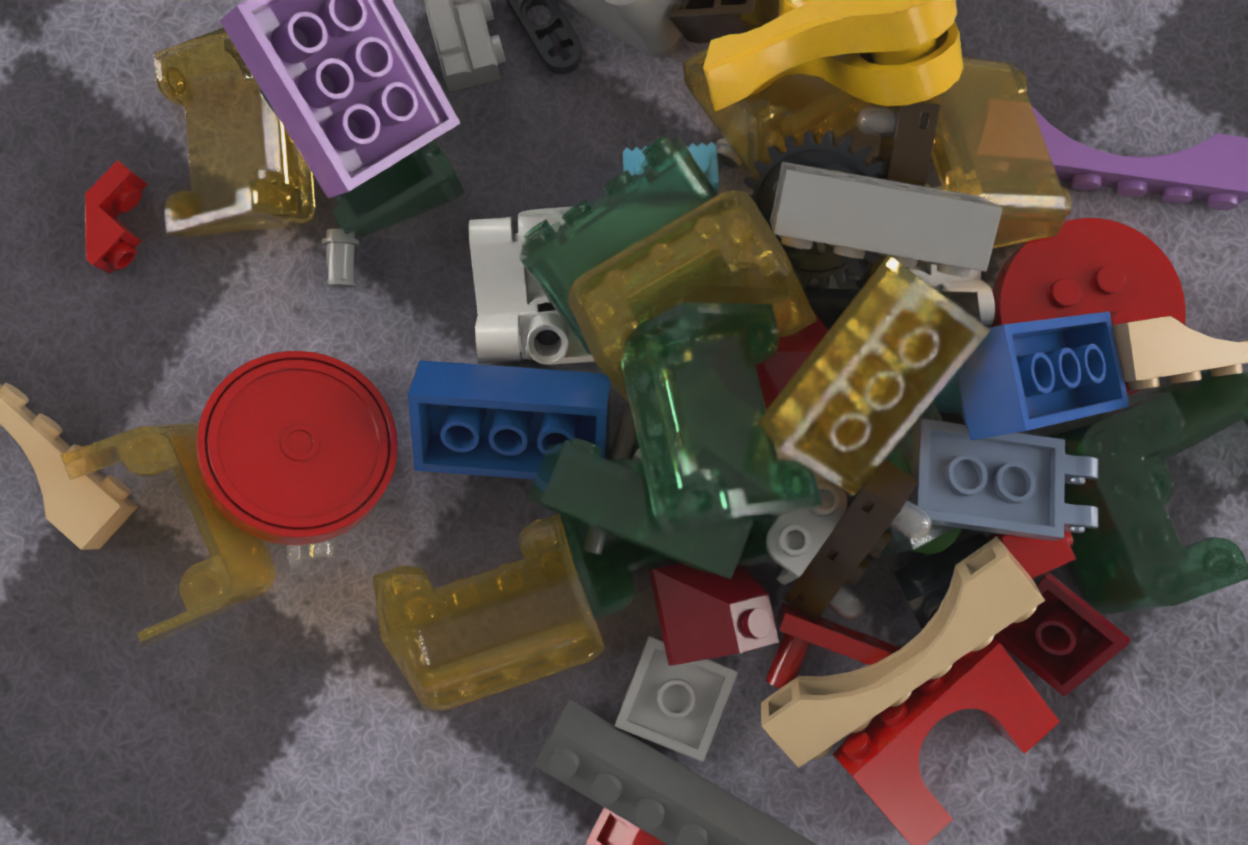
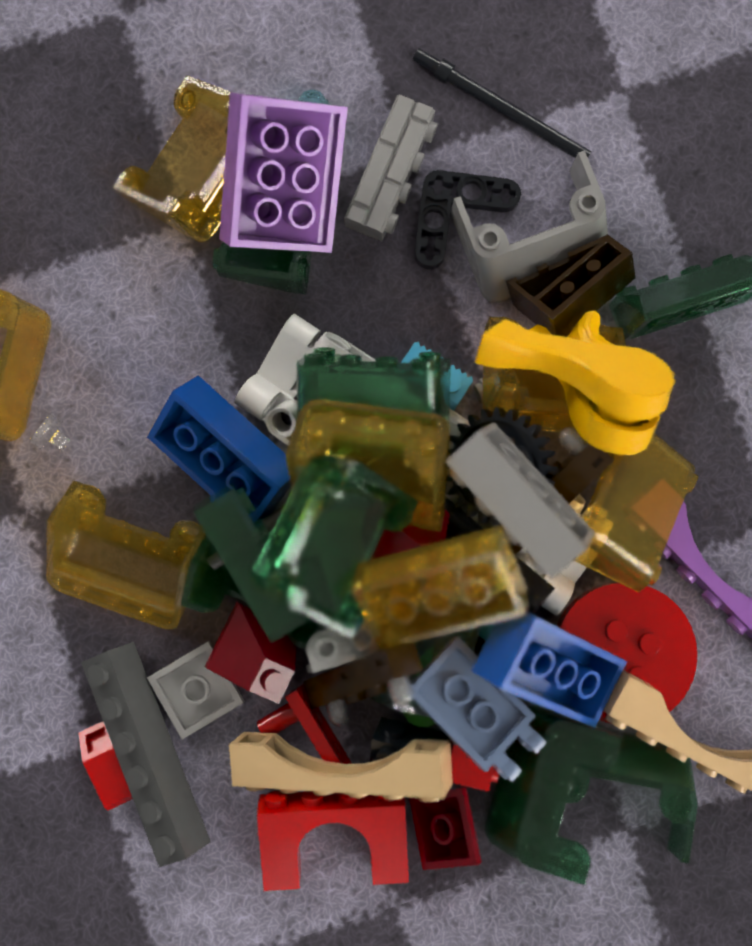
camera: 40 degrees right, 0 degrees up
(108, 240) = (78, 164): red slope -> none
(296, 447) = (89, 371): red brick -> none
(340, 258) = (201, 278): light grey pin -> none

